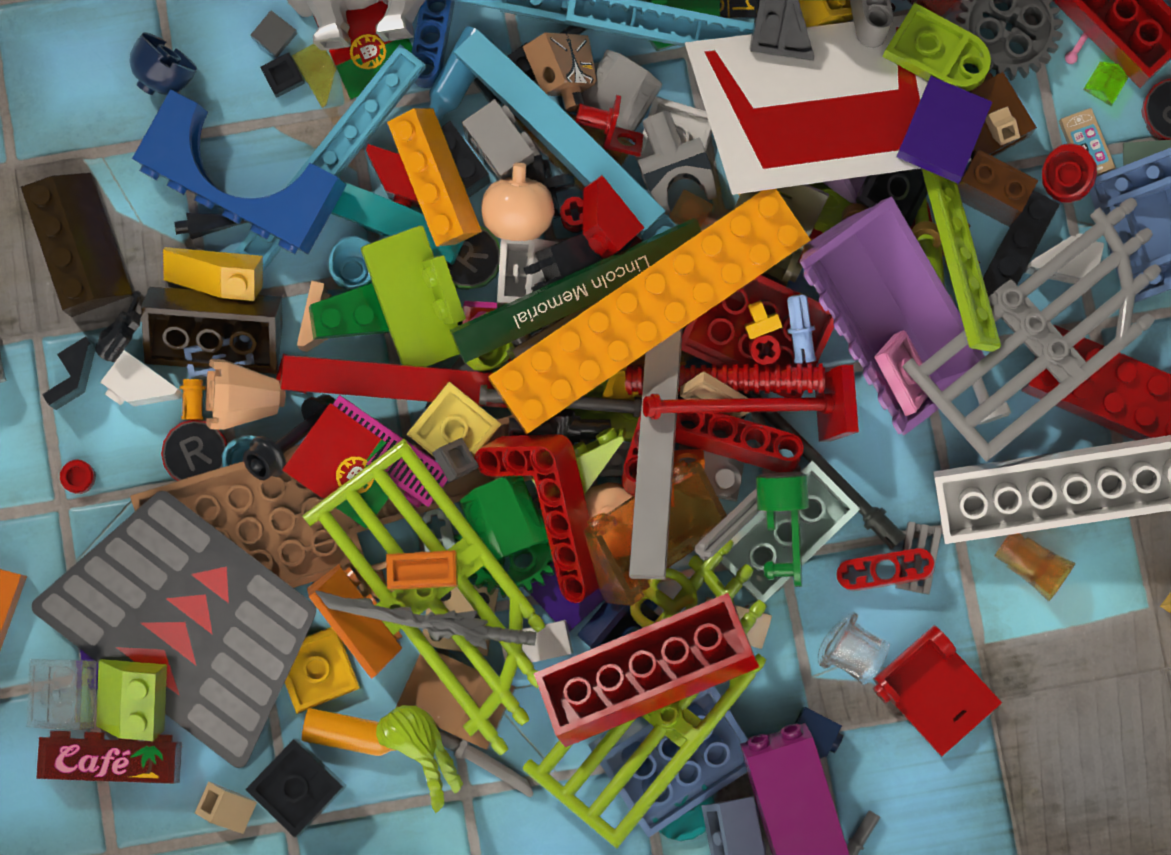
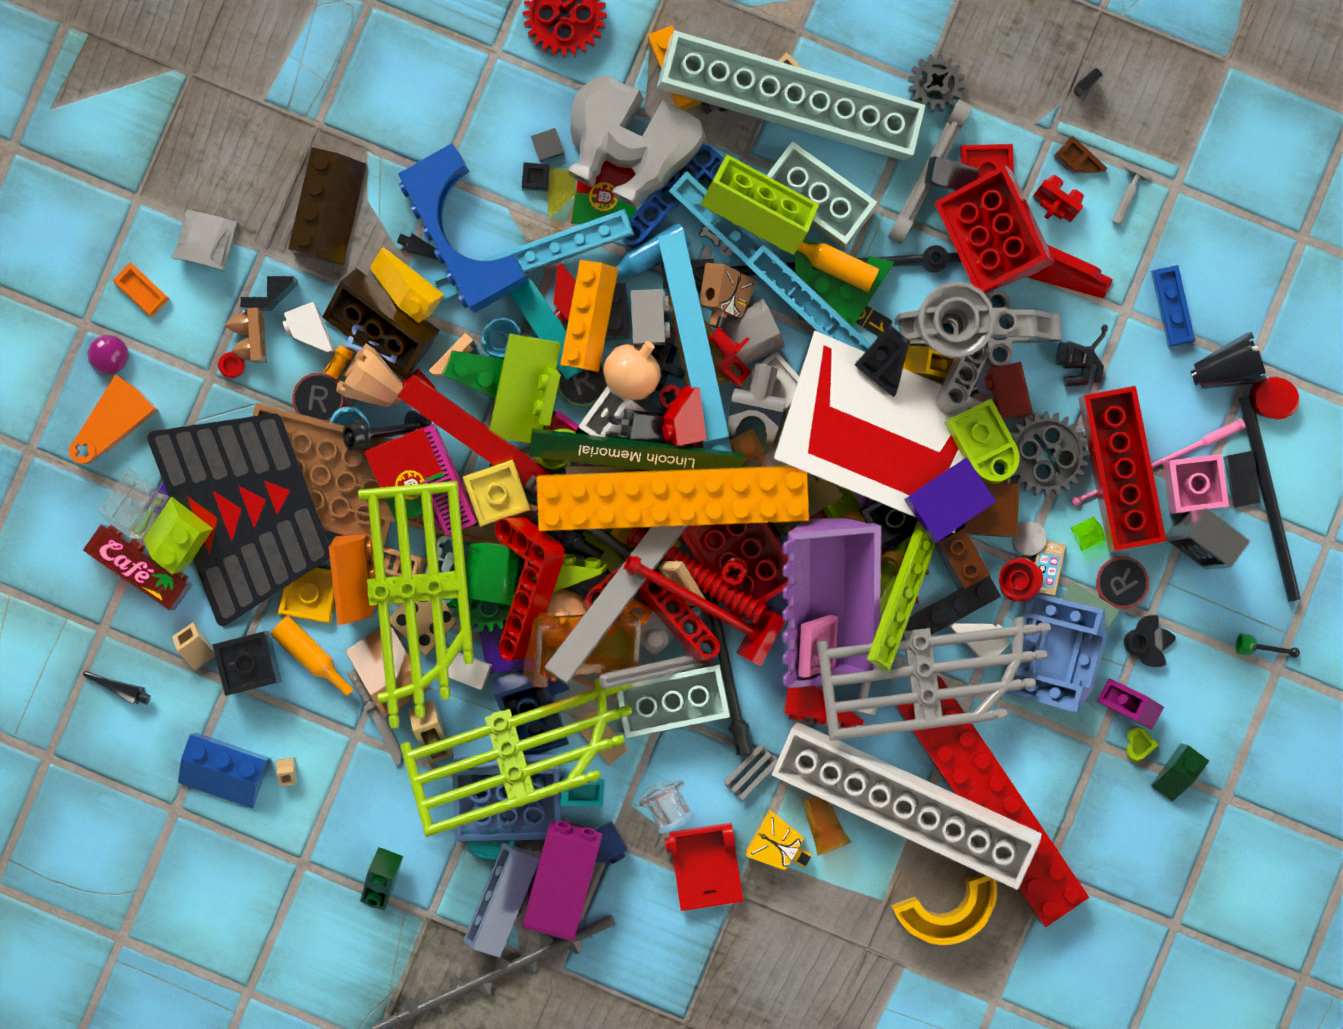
camera: 30 degrees right, 5 degrees up
(72, 418) = (250, 324): none -> medium nougat tile
(118, 335) = (316, 287): black piece -> none
(159, 66) = (455, 120): dark blue cylinder -> none
(416, 736) = (344, 682): lime hair -> none
(421, 570) = (413, 576): orange tile -> none
(436, 624) = (401, 619): dark grey sword -> none
(455, 459) = (483, 515): dark grey tile -> none
(514, 25) = (715, 244): none -> sticker
(541, 735) = (430, 730): none -> tan slope
(646, 670) = (517, 735): red brick -> none
(664, 601) = (562, 702): lime piece -> none
(755, 697) = (585, 795): none -> teal slope
(761, 321) = (743, 553): yellow tile -> none
(784, 493) = (683, 676): green piece -> none
(801, 328) = (767, 573): light blue axle -> none
(862, 581) = (708, 751): red beam -> none
(936, 441) = (810, 702): none -> red slope
(997, 615) = (777, 843): none -> yellow torso
(1002, 126) = (993, 522): tan piece -> none
(1052, 125) = (1030, 538): none -> flat silver sticker

